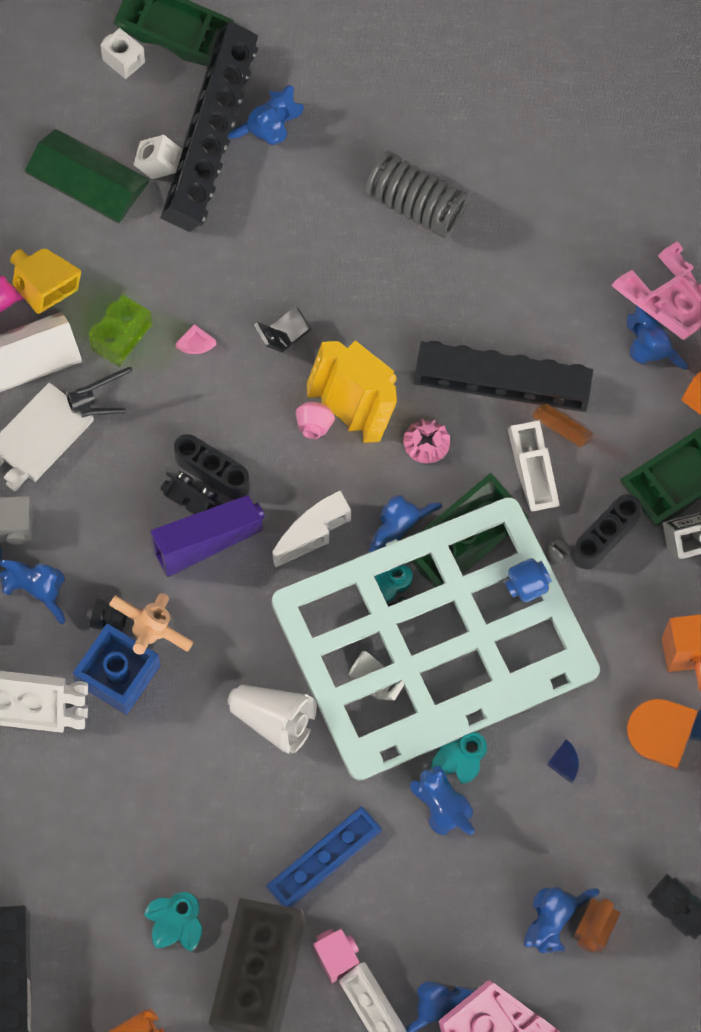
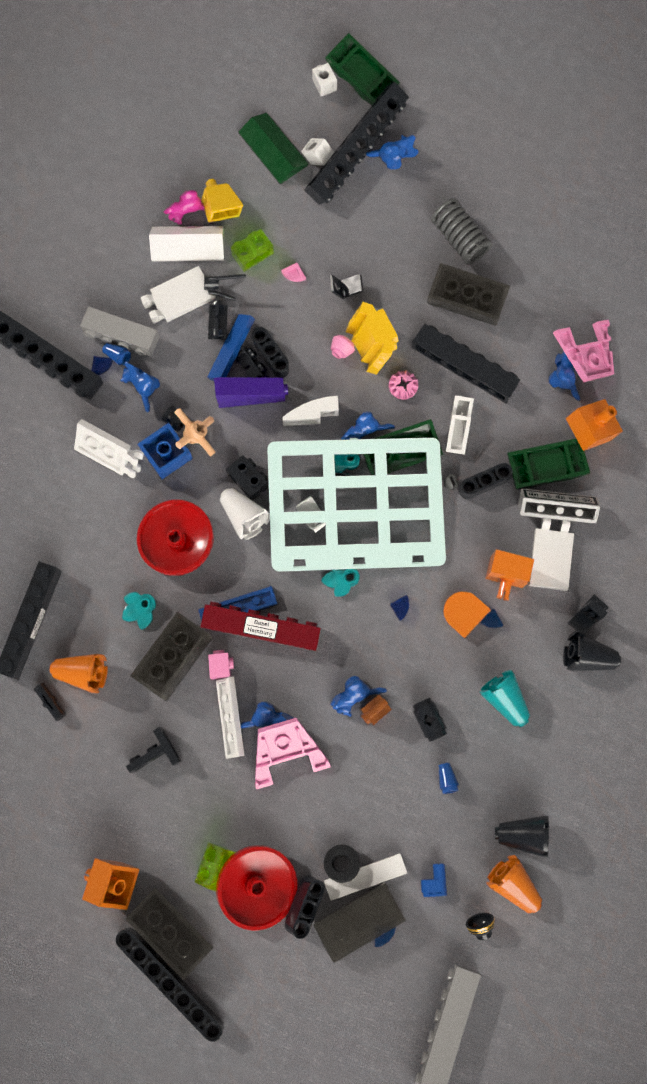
camera: 25 degrees right, 10 degrees up
(112, 451) = (217, 321): none -> black hinge
(149, 481) = (231, 346): none -> blue tile
(187, 790) = (175, 537): none -> red dish
(257, 660) = (247, 477): none -> black brick
(373, 871) = (260, 627): none -> dark red brick
(446, 806) = (319, 606): blue animal -> none
(465, 278) = (468, 294): none -> clear smoke brick
(528, 580) = (424, 492): blue head -> none
(563, 425) = (487, 406): clear orange tile -> none

